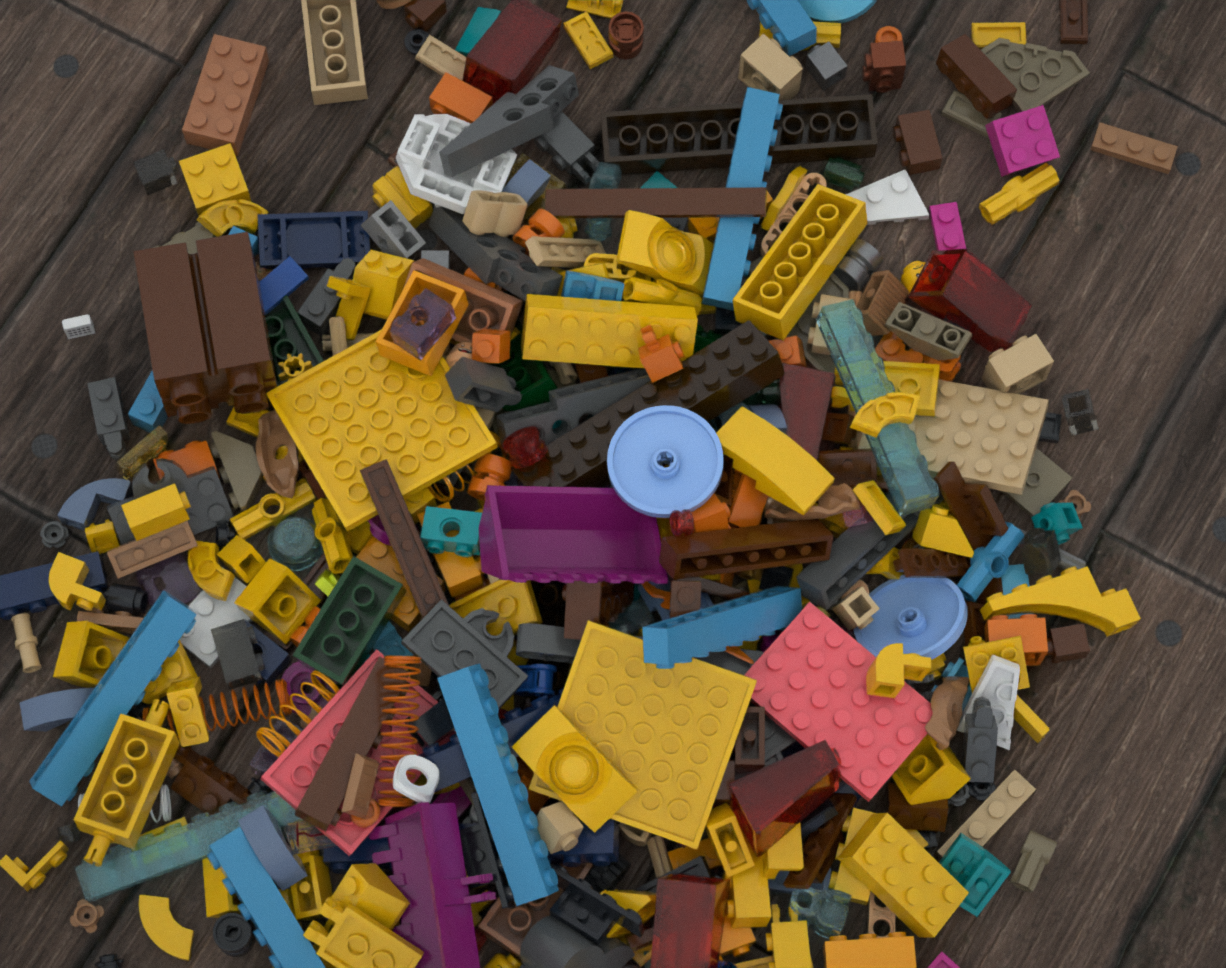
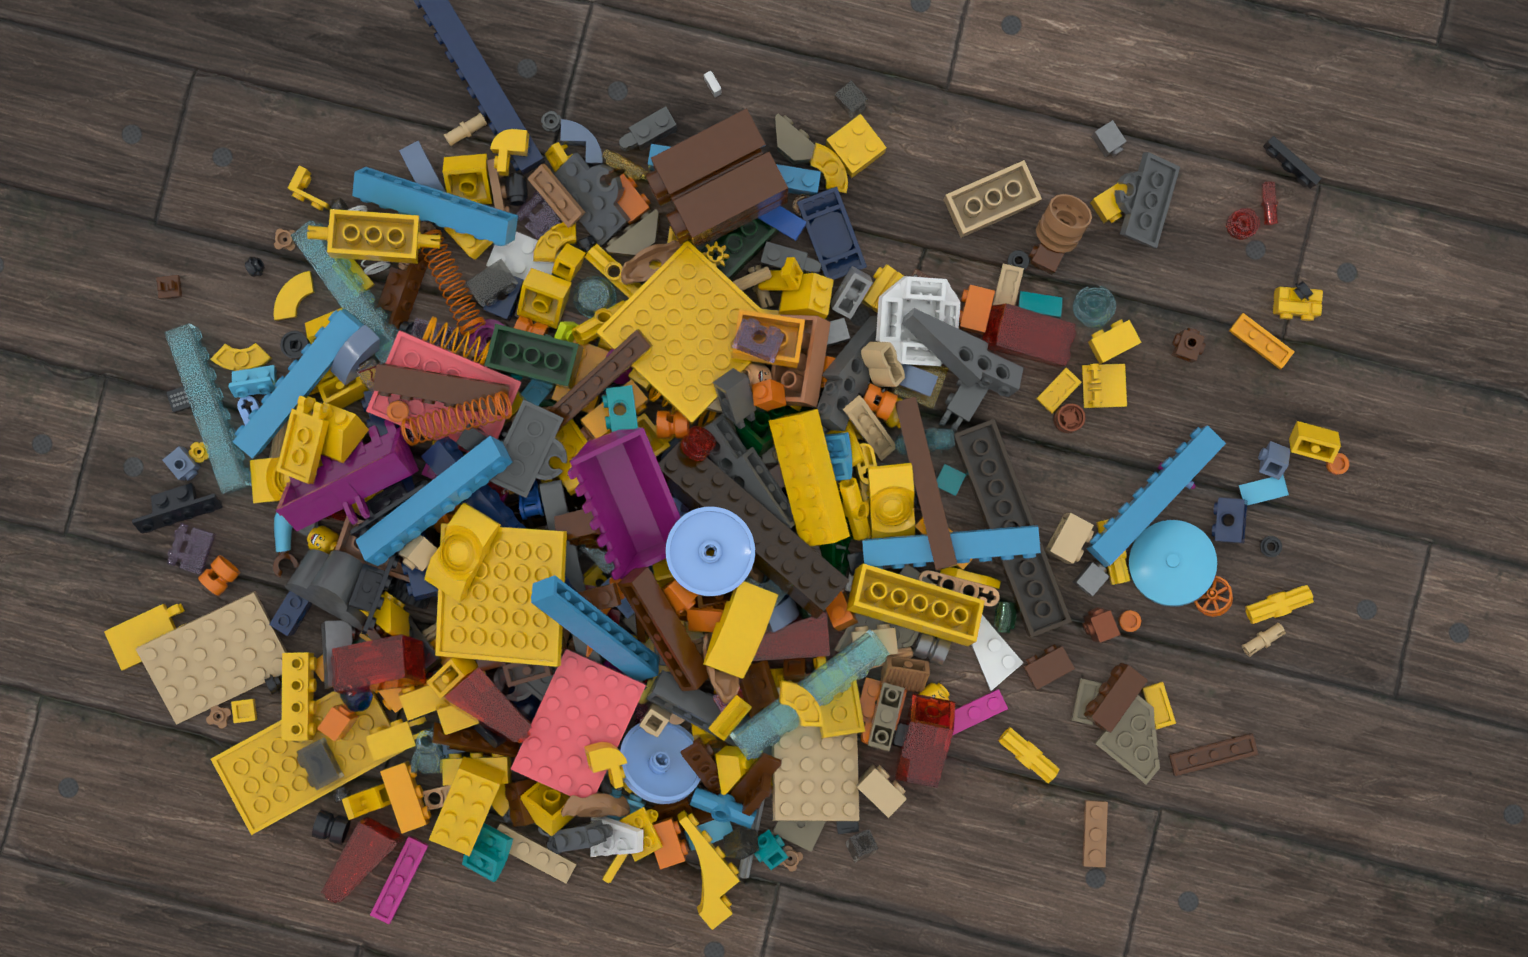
camera: 75 degrees right, 15 degrees up
(156, 511) = (577, 190): yellow brick -> none
(187, 711) = (441, 259): yellow bracket -> none
(225, 94) = (929, 130): nougat brick -> none
(360, 786) = (409, 403): medium nougat tile -> none
(405, 787) = (411, 451): white piece -> none
(660, 355) = (797, 522): orange brick -> none
(681, 522) = (662, 577): clear red bush -> none
(1022, 140) = (1070, 747): dark pink piece -> none
(1035, 855) = (518, 895): dark tan piece -> none
(1067, 643) = (681, 879): reddish brown brick -> none

